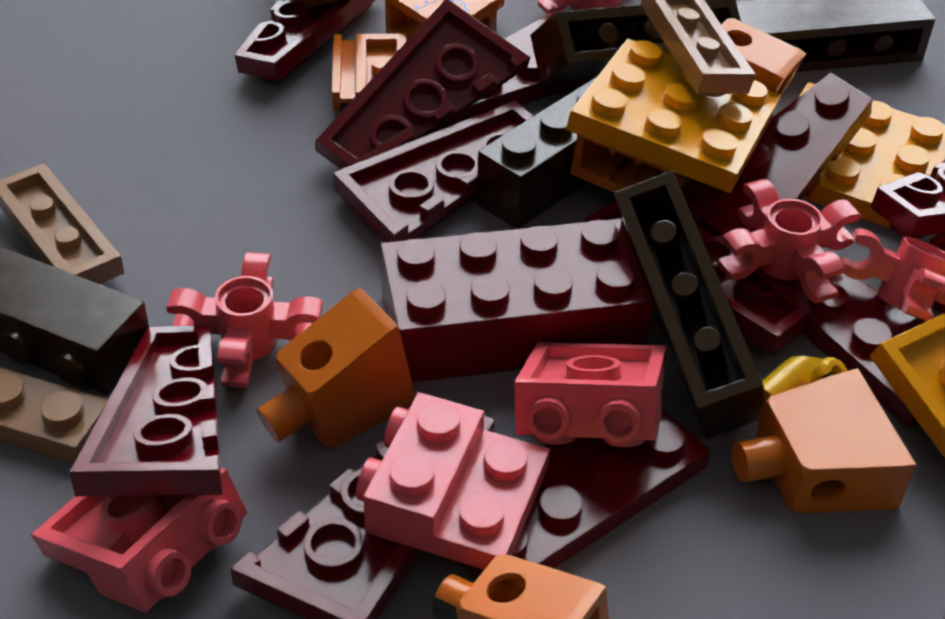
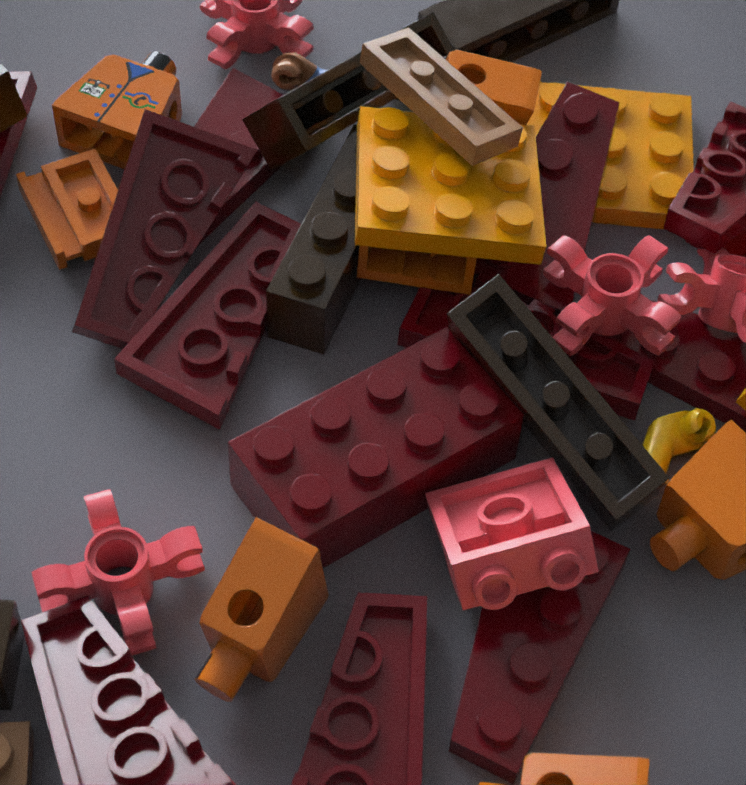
camera: 25 degrees left, 10 degrees up
(450, 483) = (433, 689): coral plate -> none

